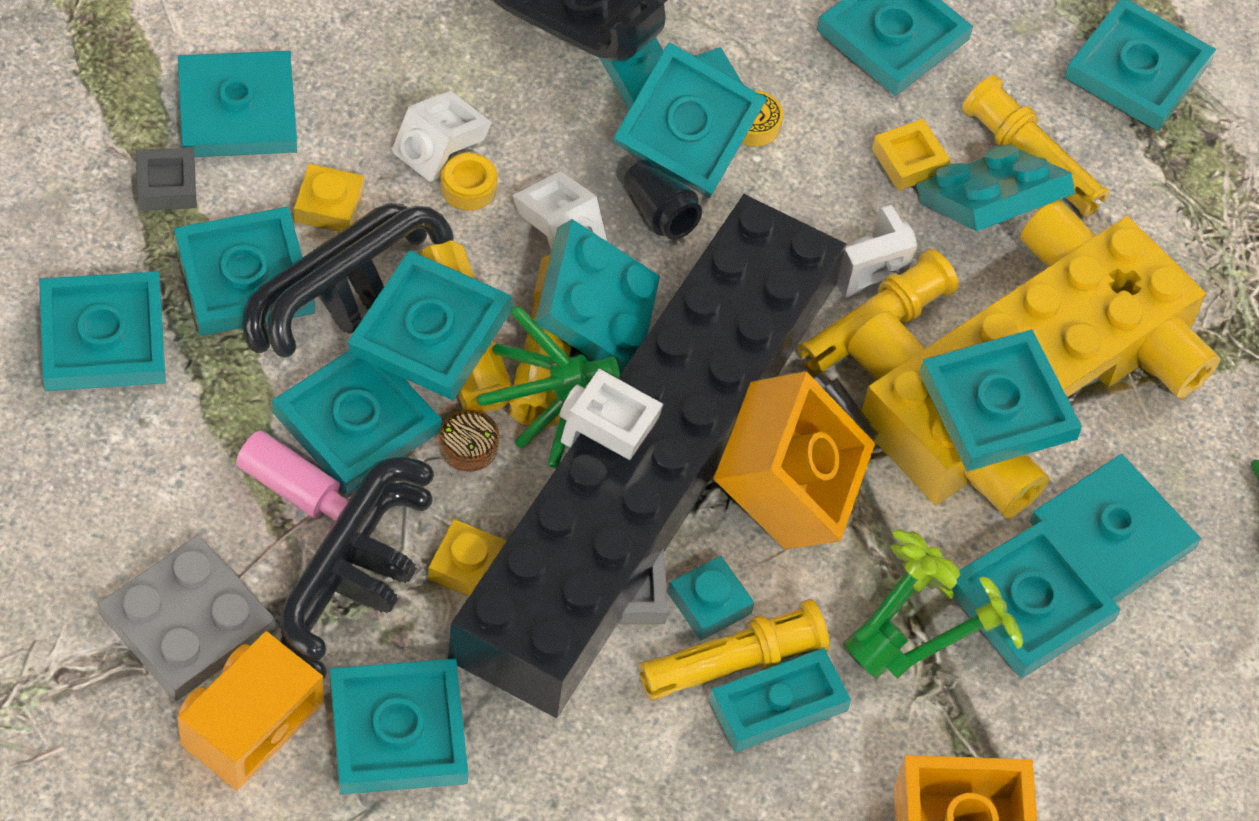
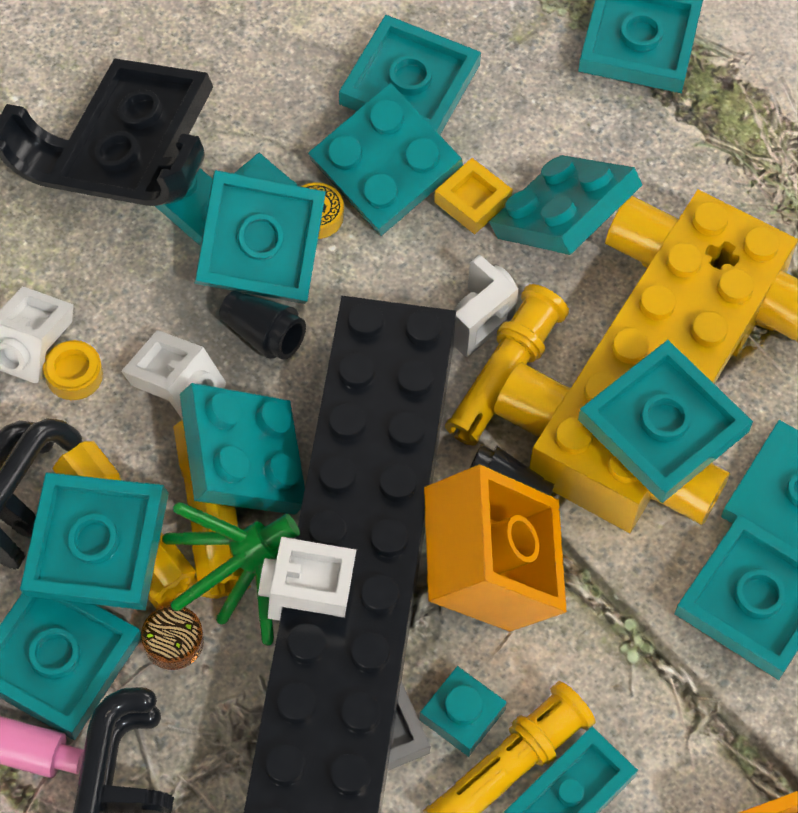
camera: 15 degrees left, 5 degrees up
(463, 557) = (218, 763): yellow plate -> none
(839, 92) = (385, 159): none -> teal plate
(880, 641) = (639, 697): plant -> none
(1019, 128) = (559, 136): yellow pin -> none

